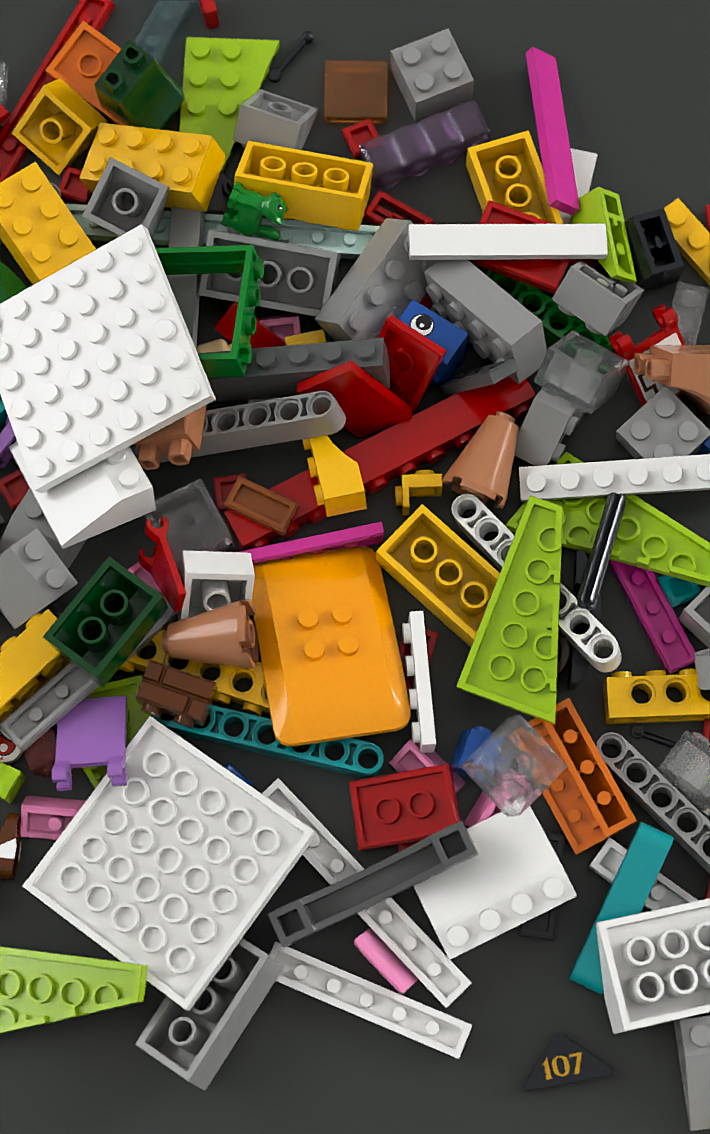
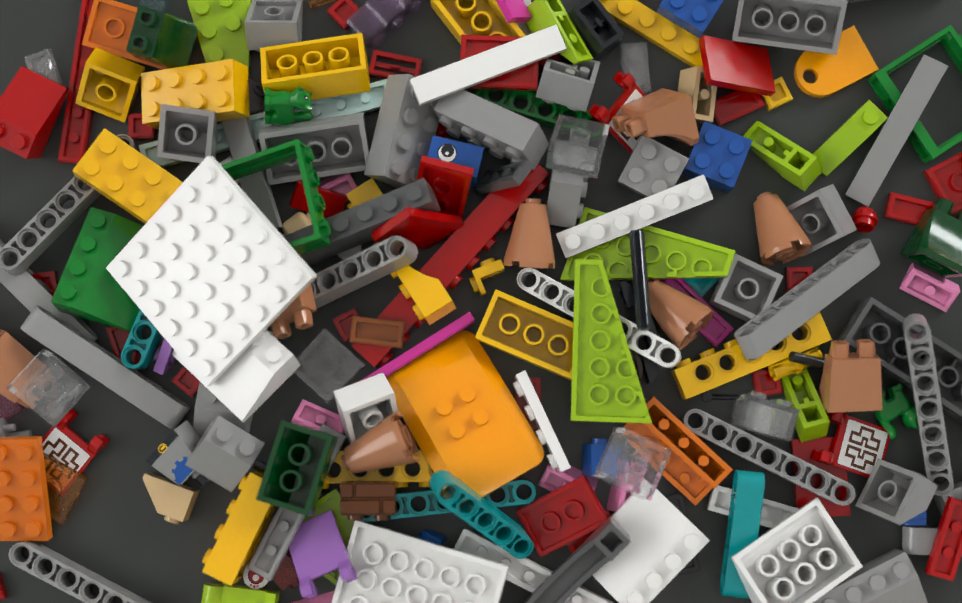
camera: 20 degrees left, 10 degrees up
(162, 565) = (322, 405): red flag -> none
(309, 776) = (492, 523): none -> teal beam
(635, 612) = (677, 313): none -> nougat cone

